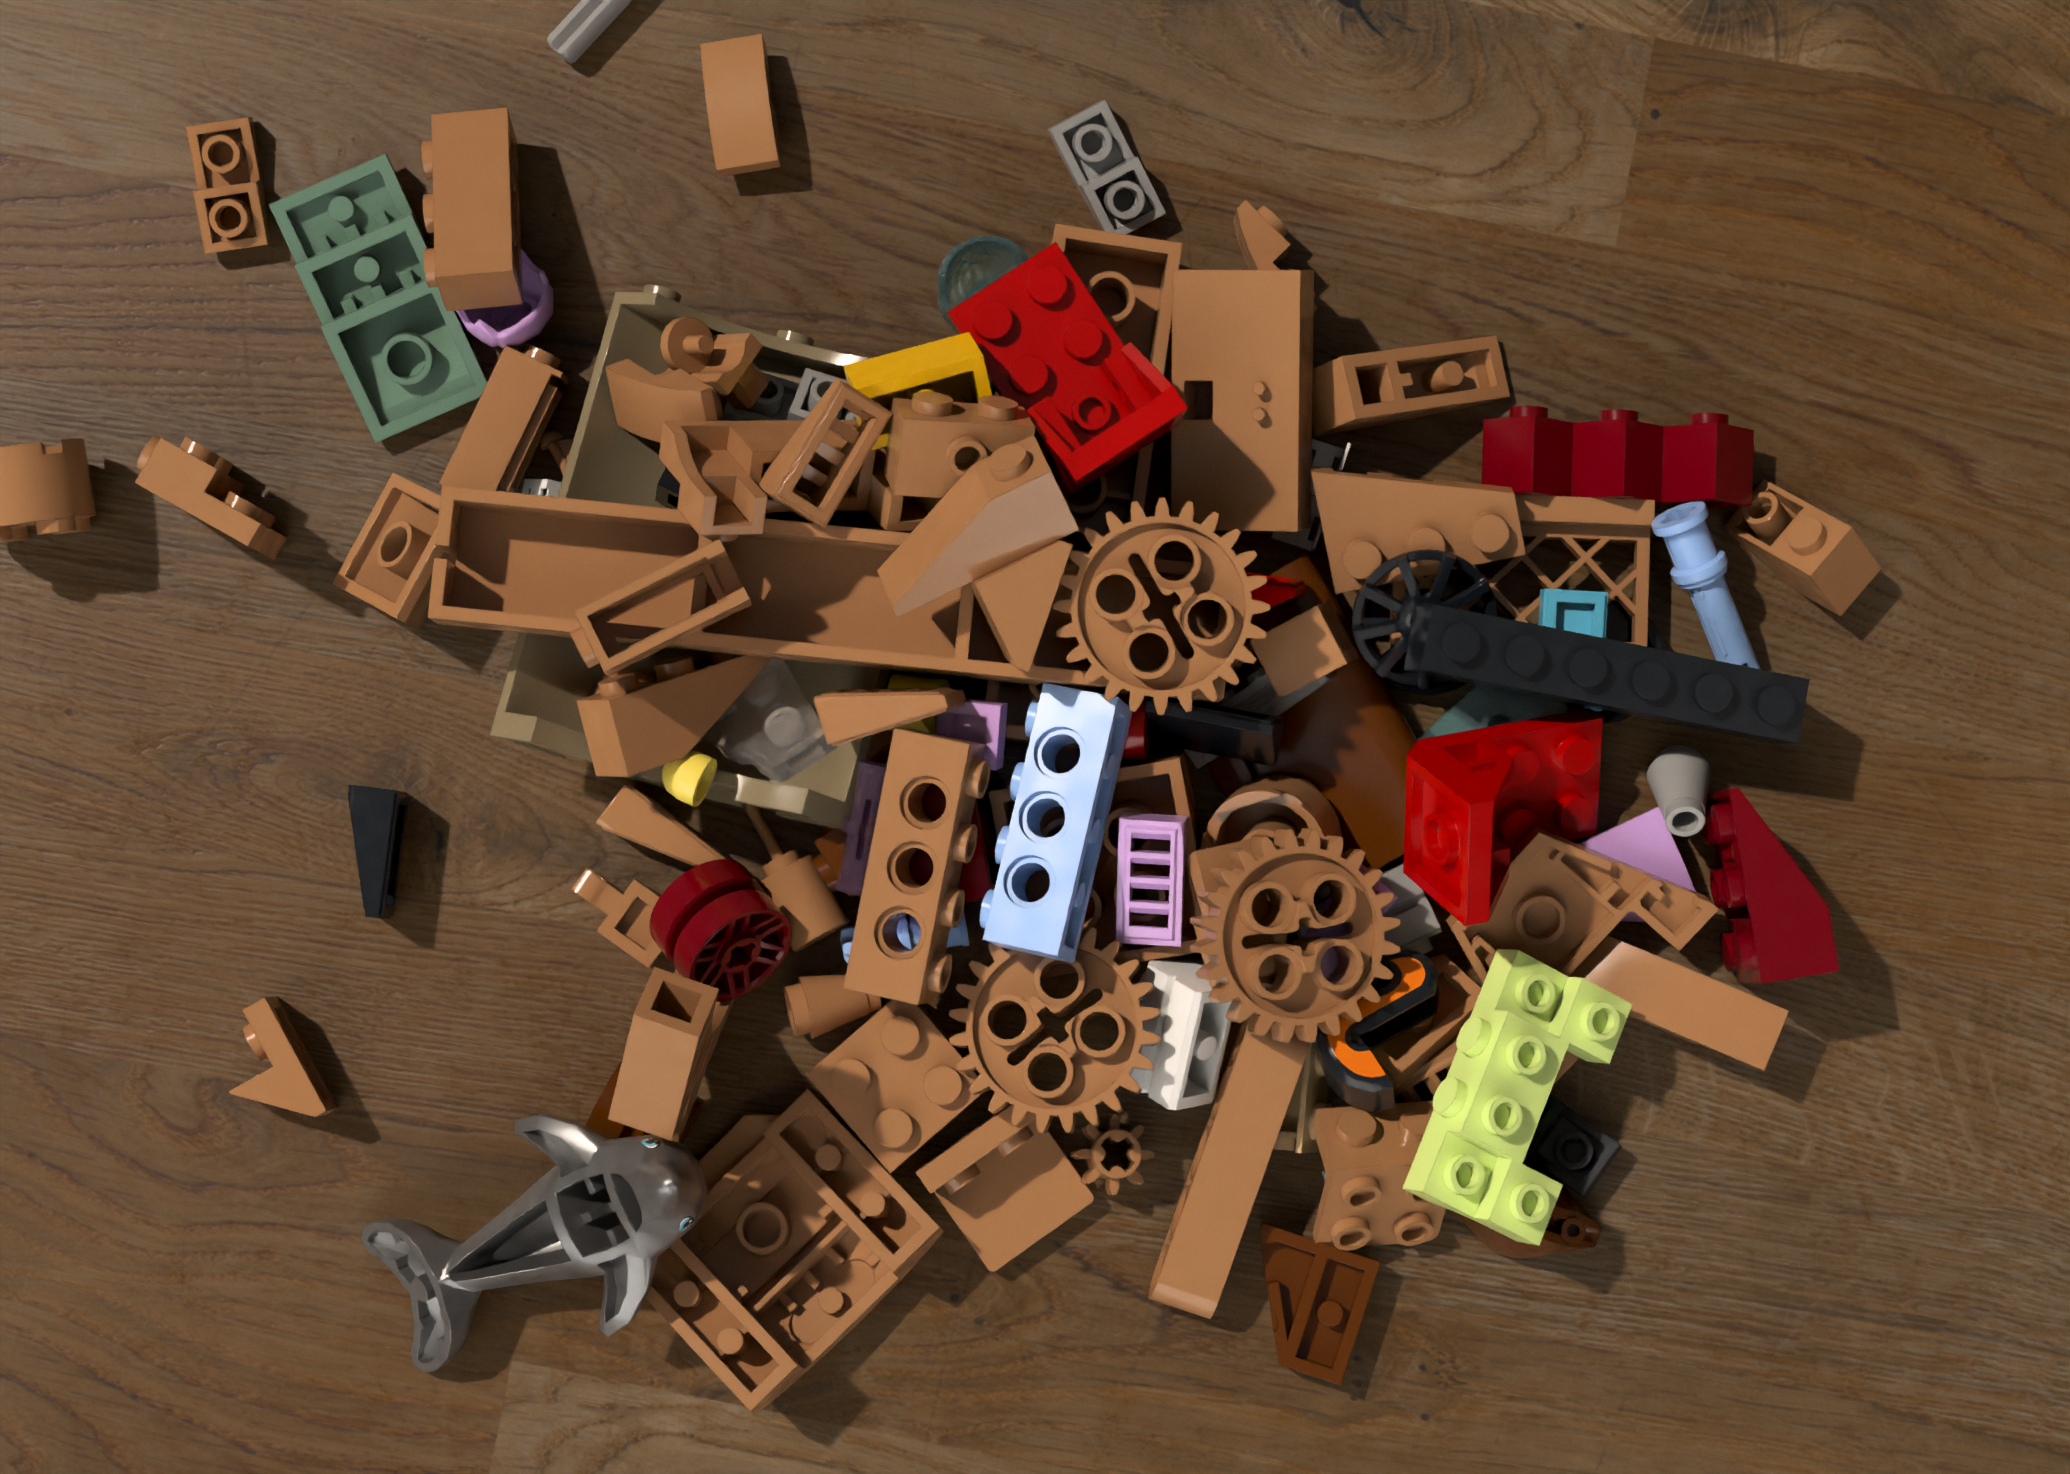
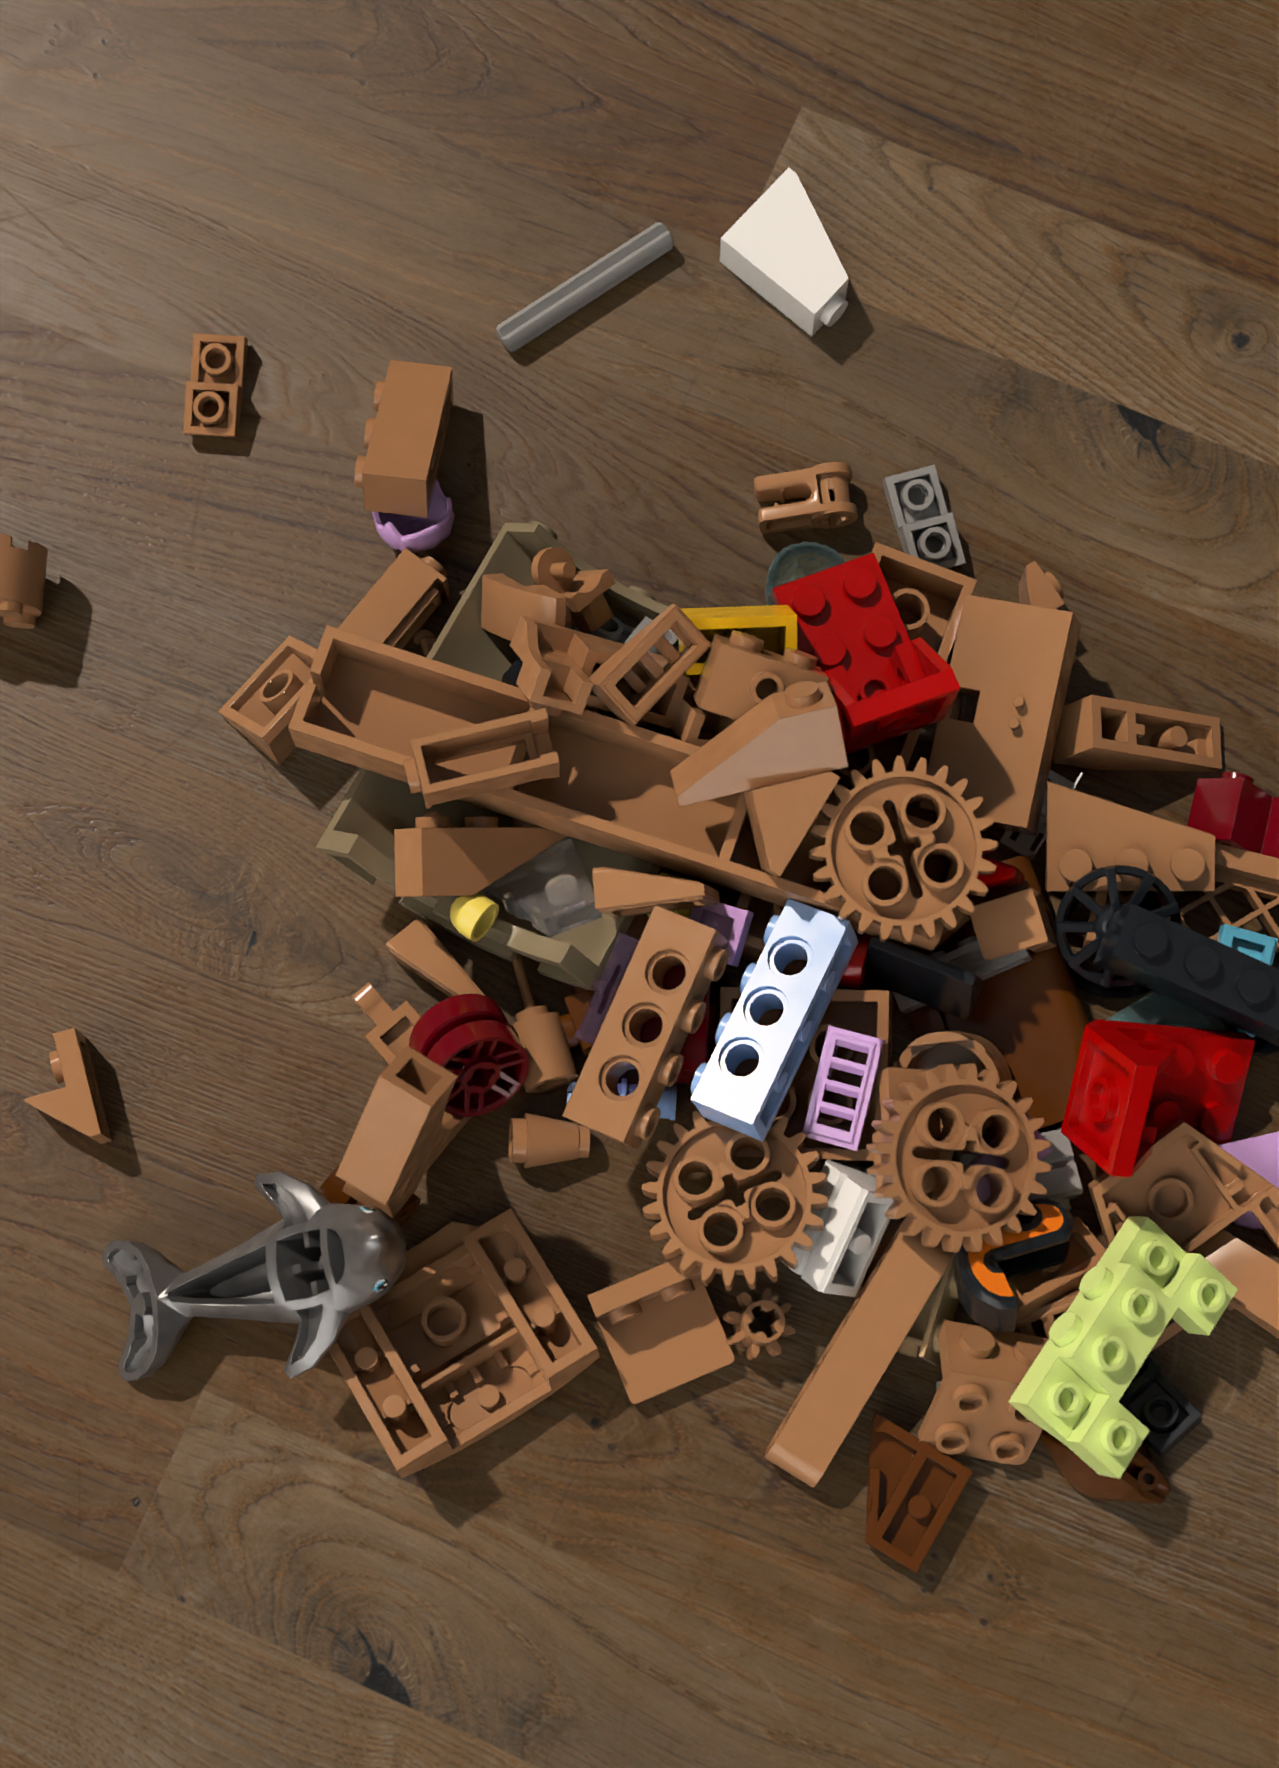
camera: 15 degrees right, 10 degrees down
(201, 486) = (131, 607): medium nougat plate -> none
(368, 283) = (310, 507): sand green slope -> none
(378, 834) = (204, 917): black slope -> none
(740, 105) = (638, 408): medium nougat slope -> none
(895, 1081) = (588, 1217): medium nougat brick -> none
(964, 155) = (813, 485): none -> medium nougat piece

